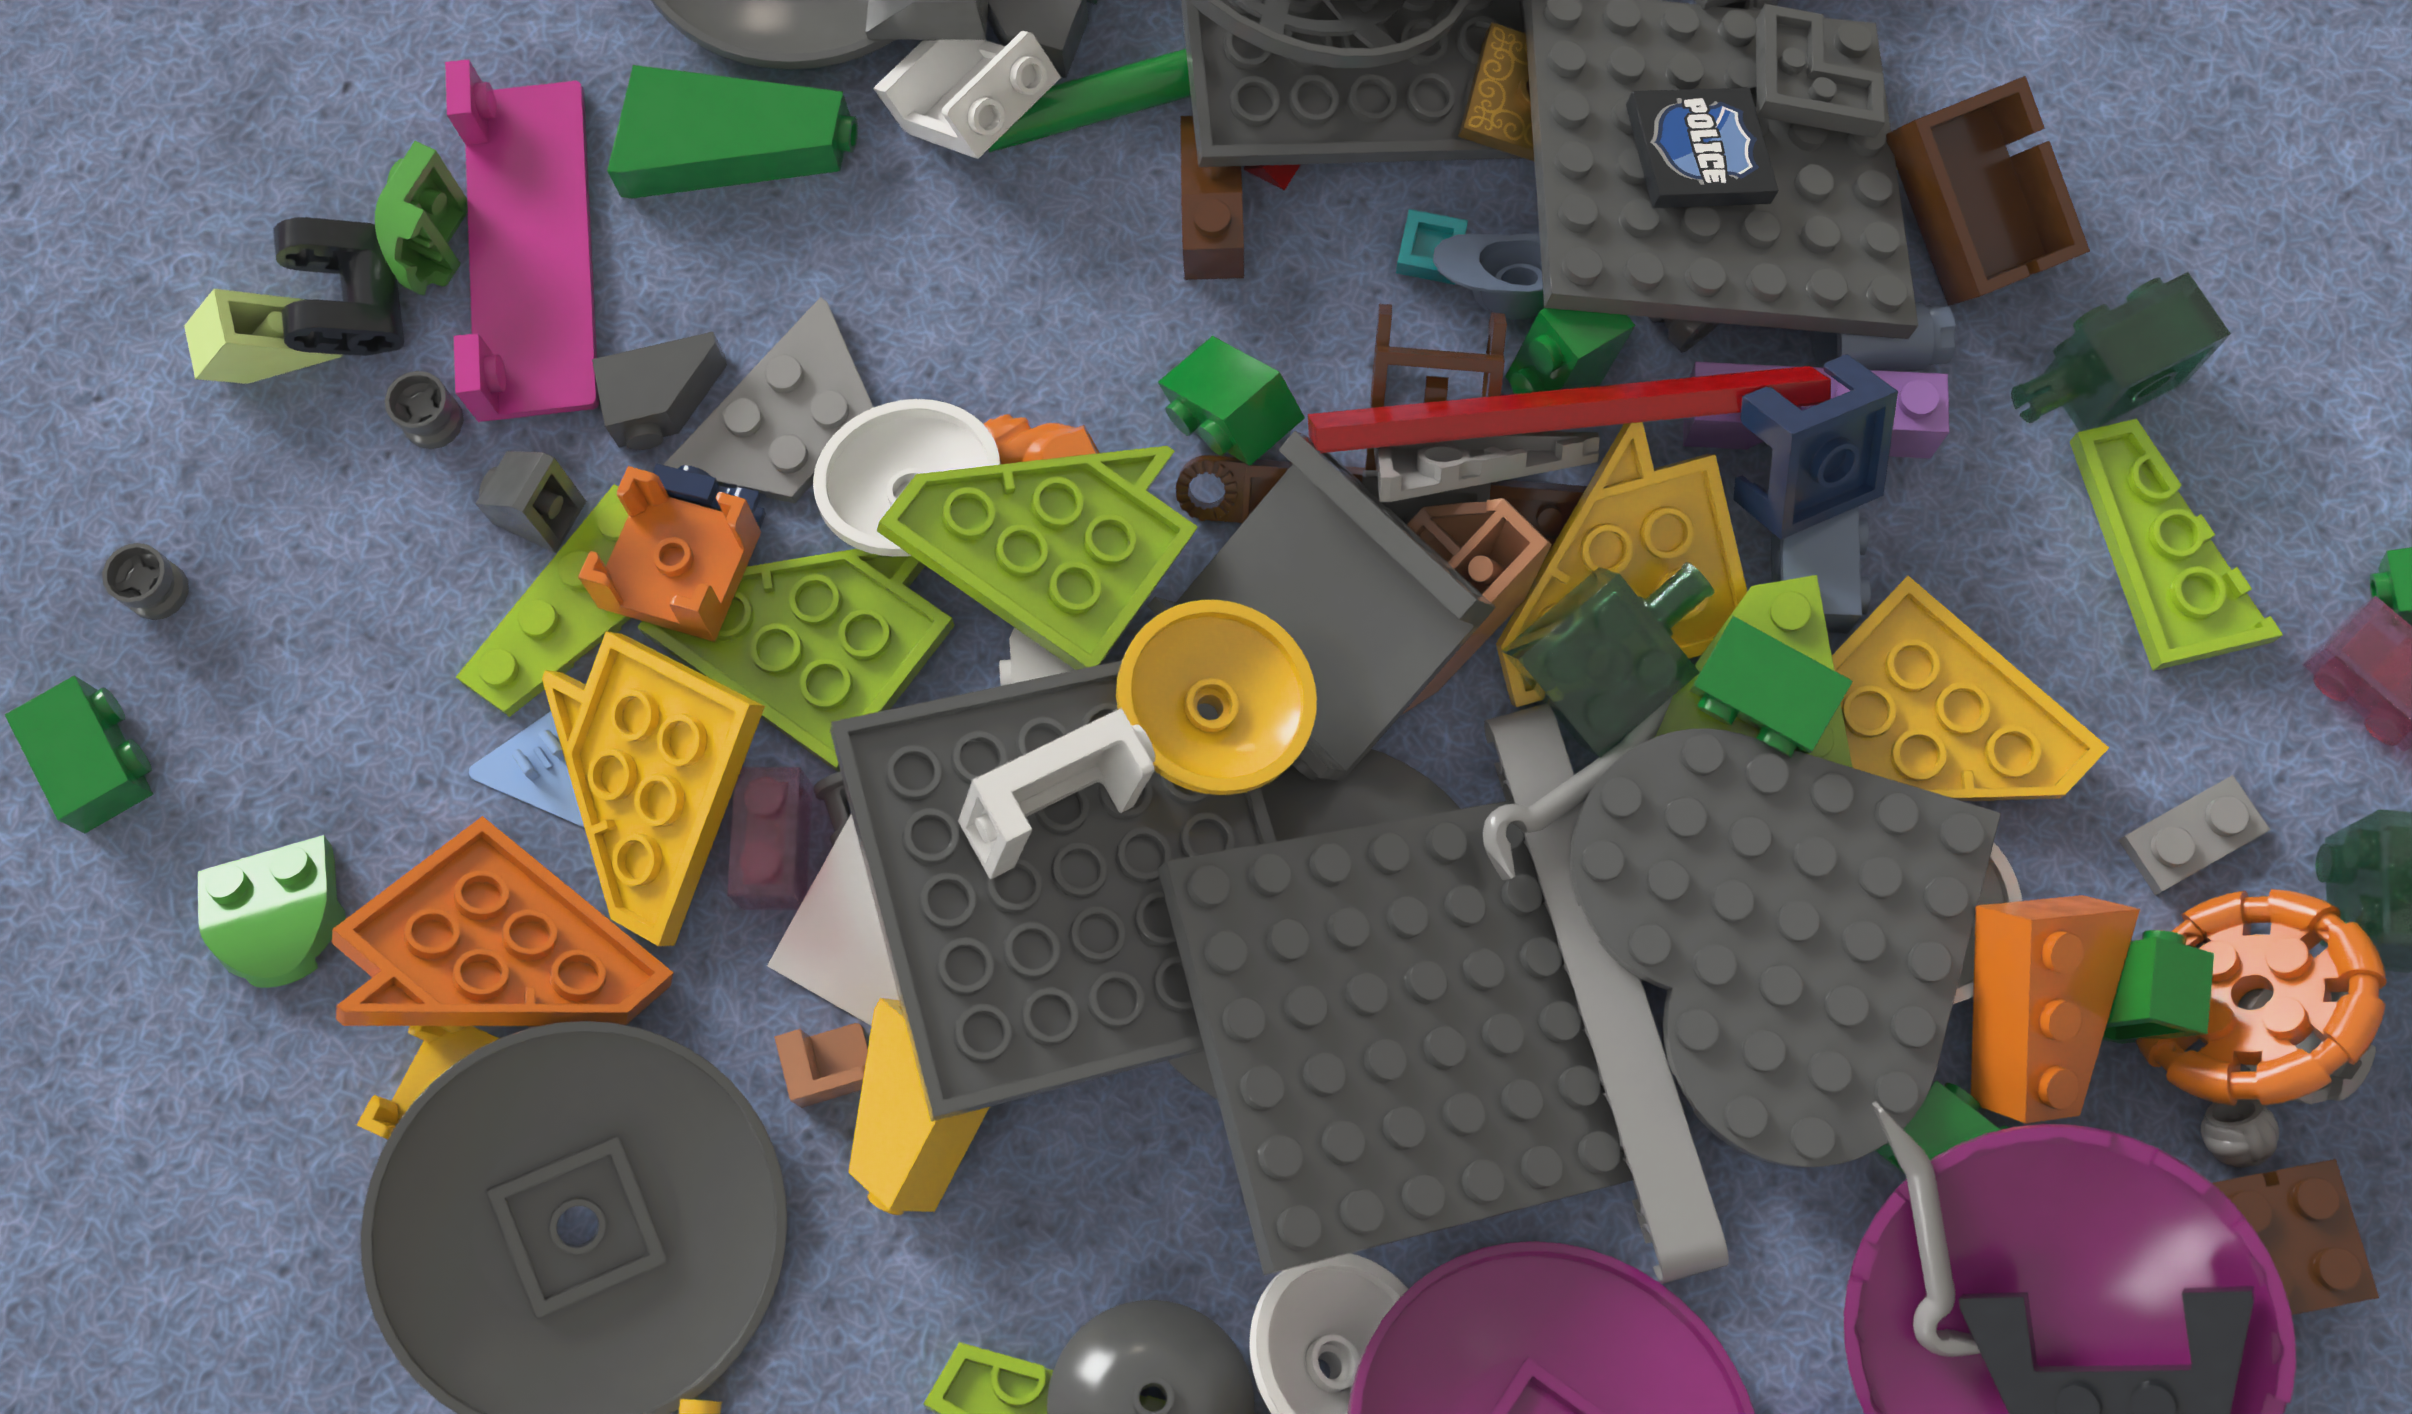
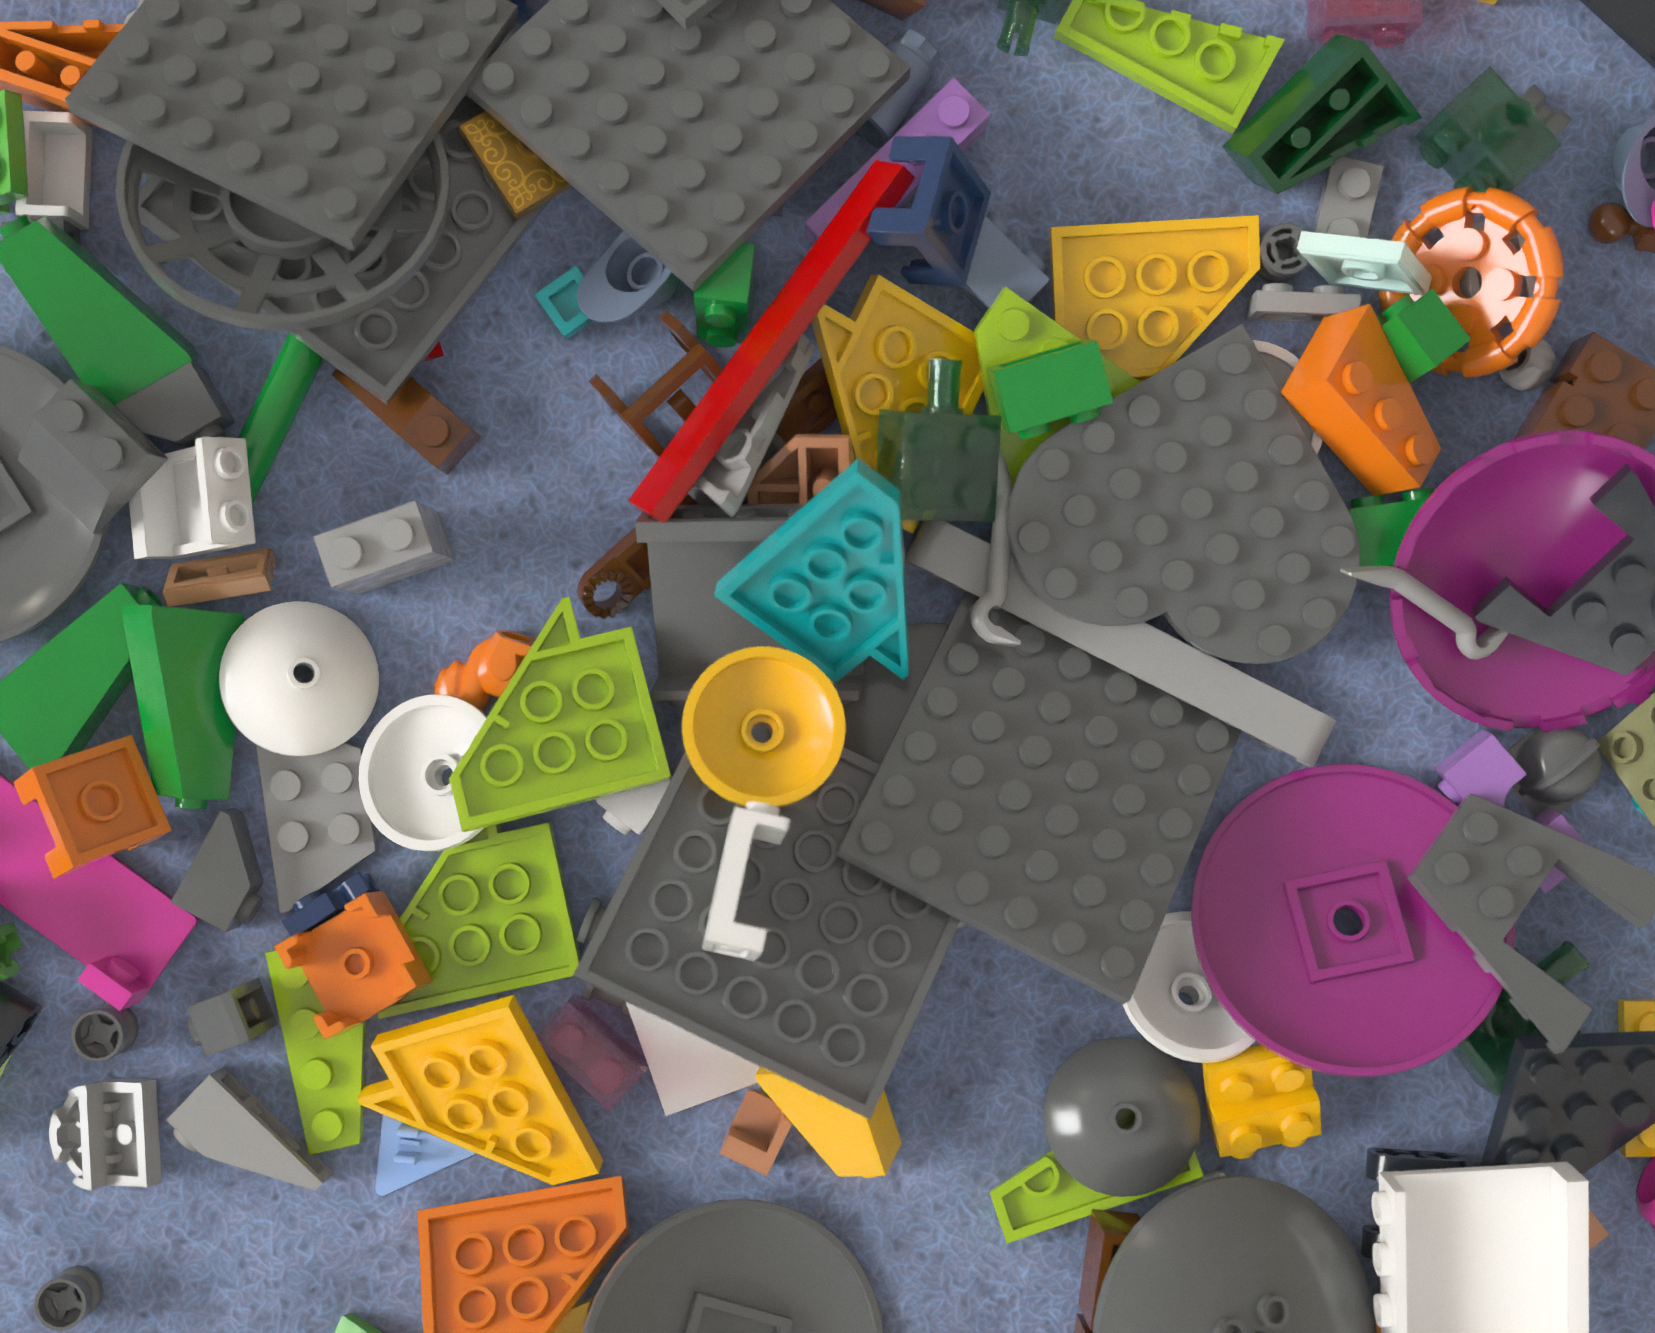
camera: 50 degrees left, 15 degrees up
(332, 491) = (109, 1133): none -> light grey slope
(428, 588) = (236, 1128): none -> light grey slope
(627, 225) = (95, 804): none -> orange panel
(791, 223) = (179, 699): none -> green slope
(867, 333) = (275, 707): none -> white dish
(920, 169) = (219, 577): none -> medium nougat tile
(1072, 265) = (384, 548): none -> light grey brick
(1230, 401) = (565, 529): green brick -> none
(1411, 639) = (832, 578): none -> teal wing
(1701, 147) = (678, 89): tile -> none
(2057, 855) = (1281, 304): none -> light grey plate
(2085, 816) = (1275, 262): none -> dark grey wheel
(2169, 874) = (1365, 263): none -> light aqua tile
(2255, 723) = (1319, 115): none -> dark green wedge

